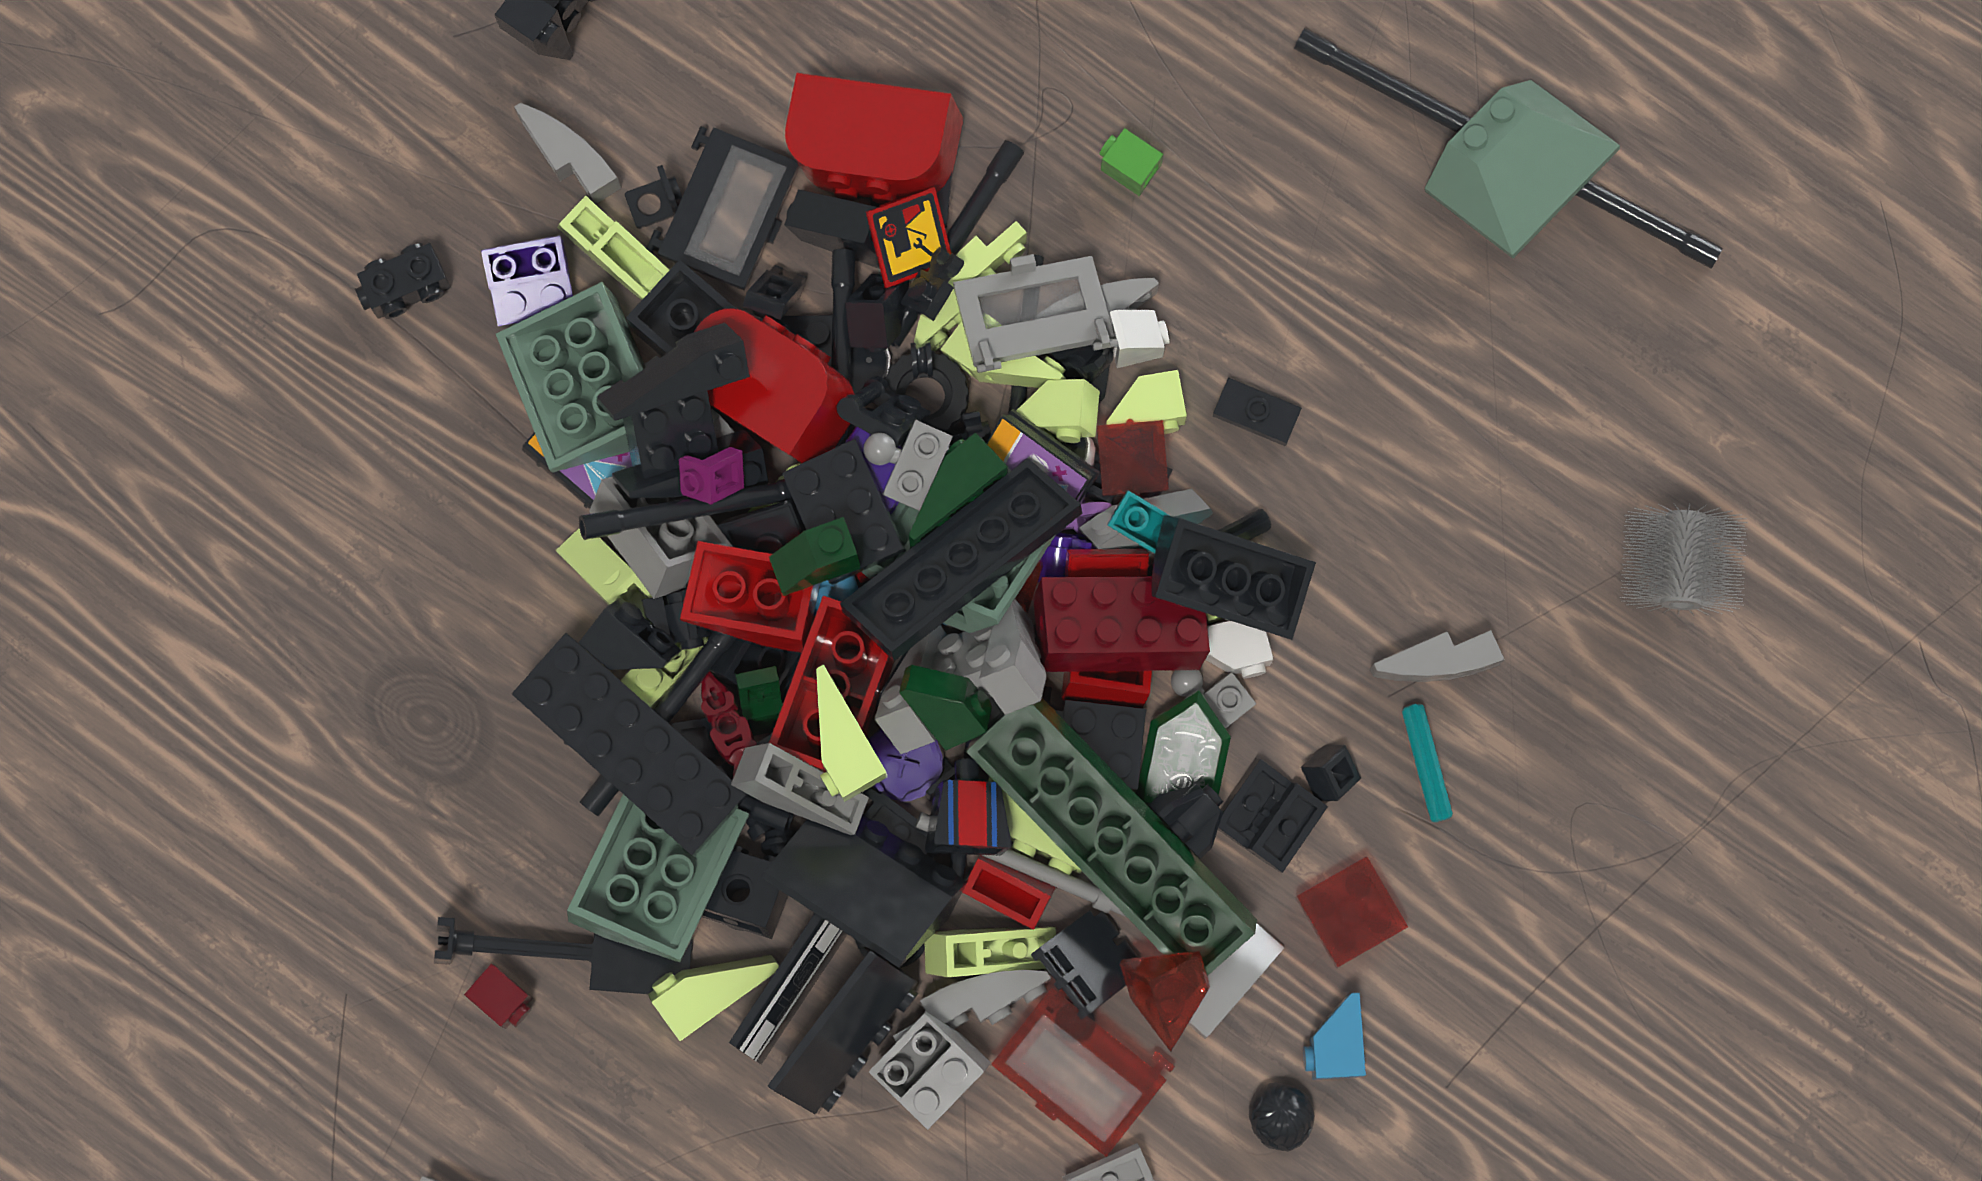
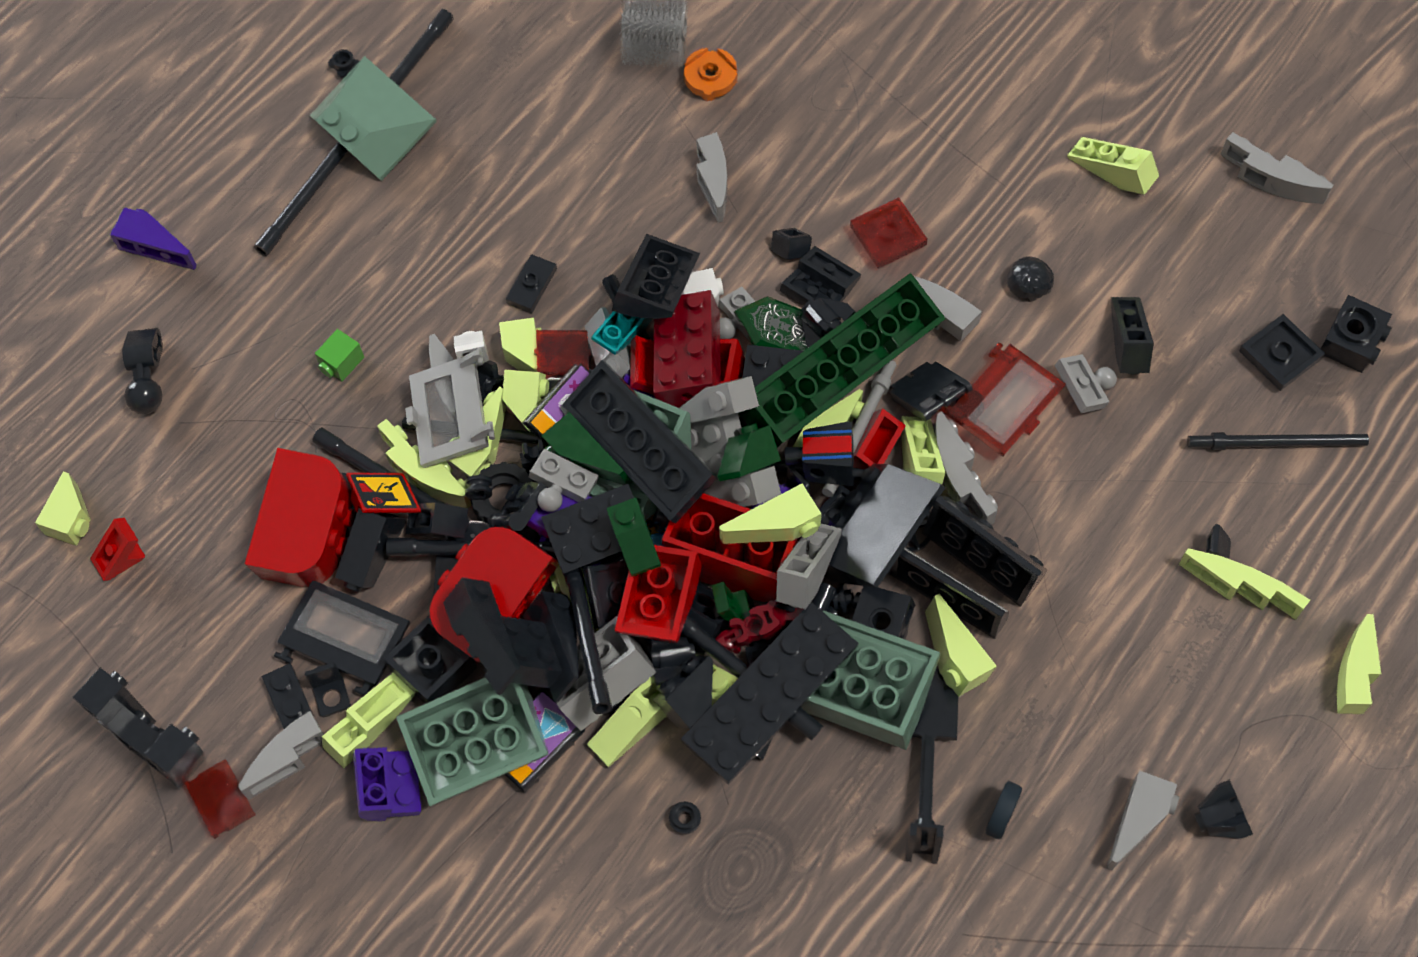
camera: 85 degrees left, 15 degrees down
(402, 281) = (380, 897): black brick -> none
(481, 639) = (684, 808): none -> black plate
(489, 1044) = (1003, 810): none -> black bush
(500, 997) = (964, 806): dark red brick -> none
(515, 80) = (220, 798): none -> clear red plate
(646, 150) = (286, 694): none -> black plate
(712, 477) = (565, 620): magenta bracket -> none
(774, 293) = (417, 588): black hinge -> none
(929, 1068) = (1013, 489): light grey slope -> none
(931, 288) = (425, 480): black plate -> none
(1167, 990) = (950, 335): clear red slope -> none
(1338, 1044) = (978, 240): dark azure slope -> none
(1427, 763) = (784, 187): teal axle -> none
(1622, 107) = (342, 62): none -> black plate
(1623, 627) = (710, 86): none -> orange plate

